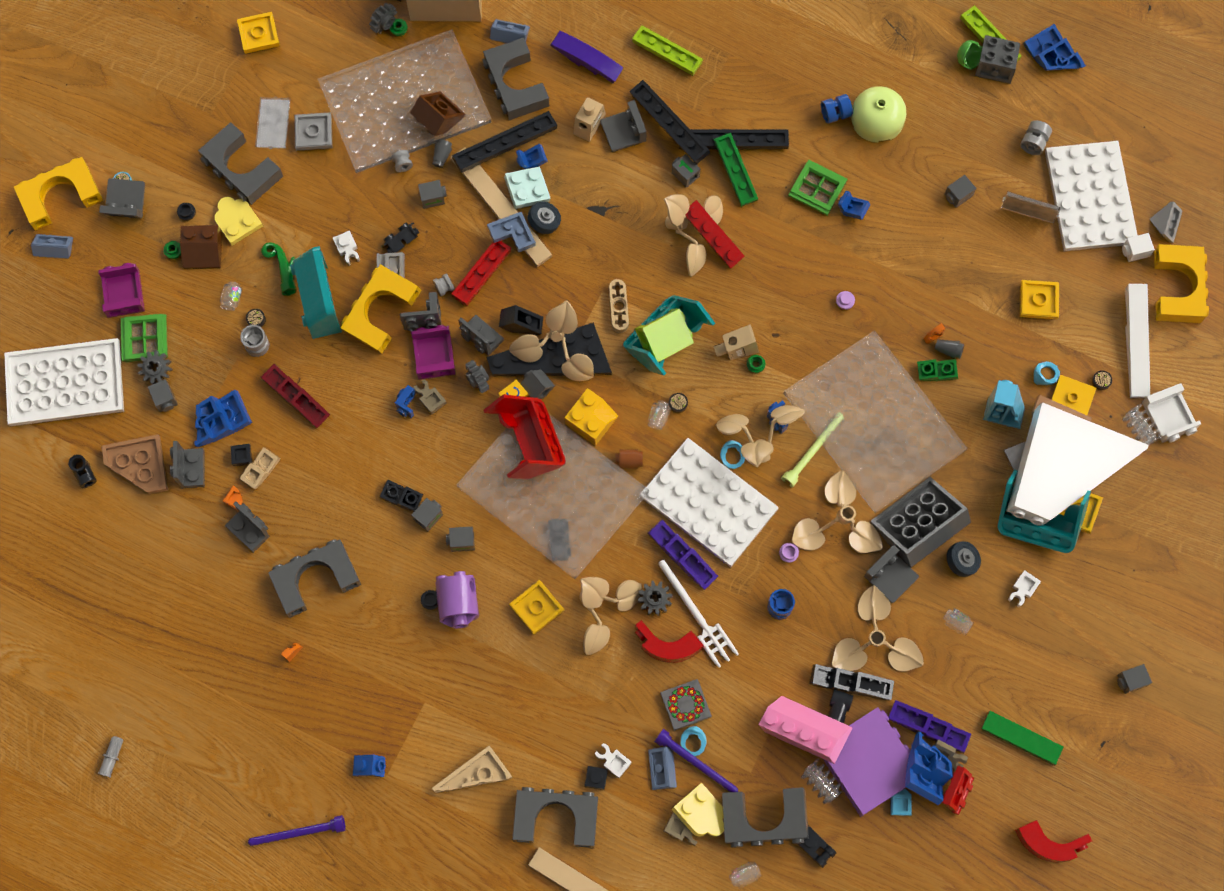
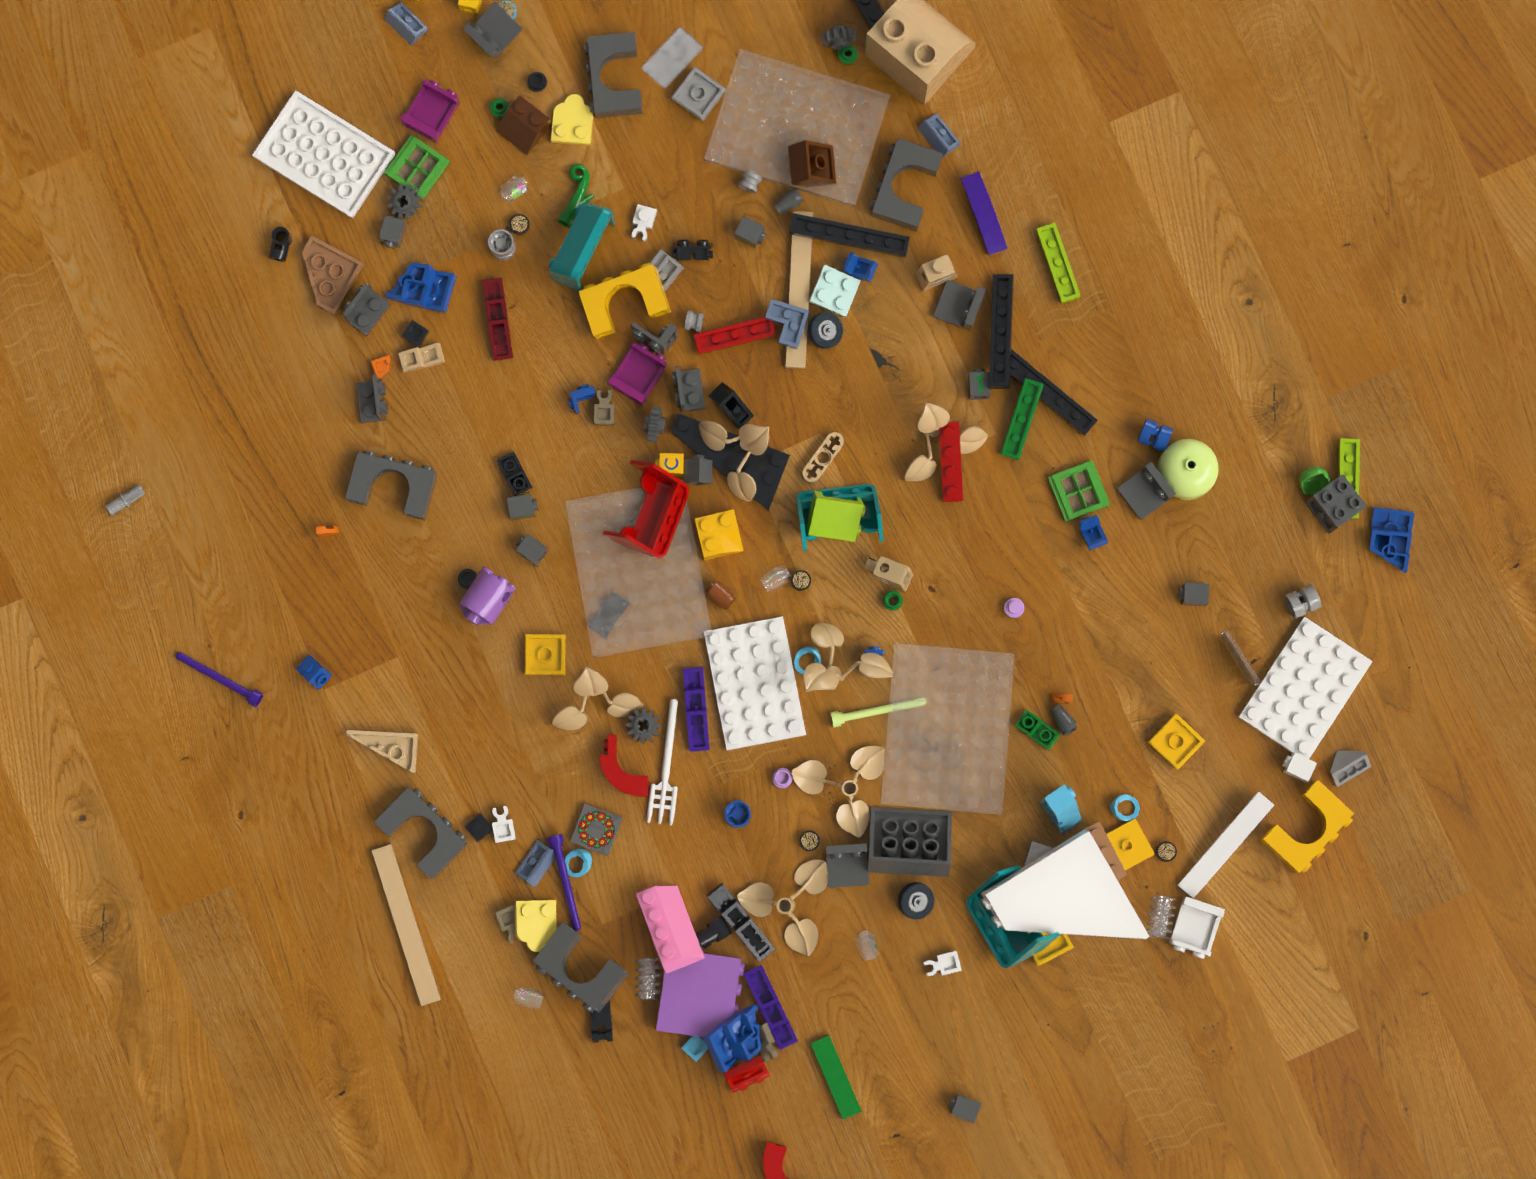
camera: 40 degrees right, 10 degrees up
(848, 581) = (809, 840): none -> tile
(864, 148) = (1146, 491): none -> dark grey bracket

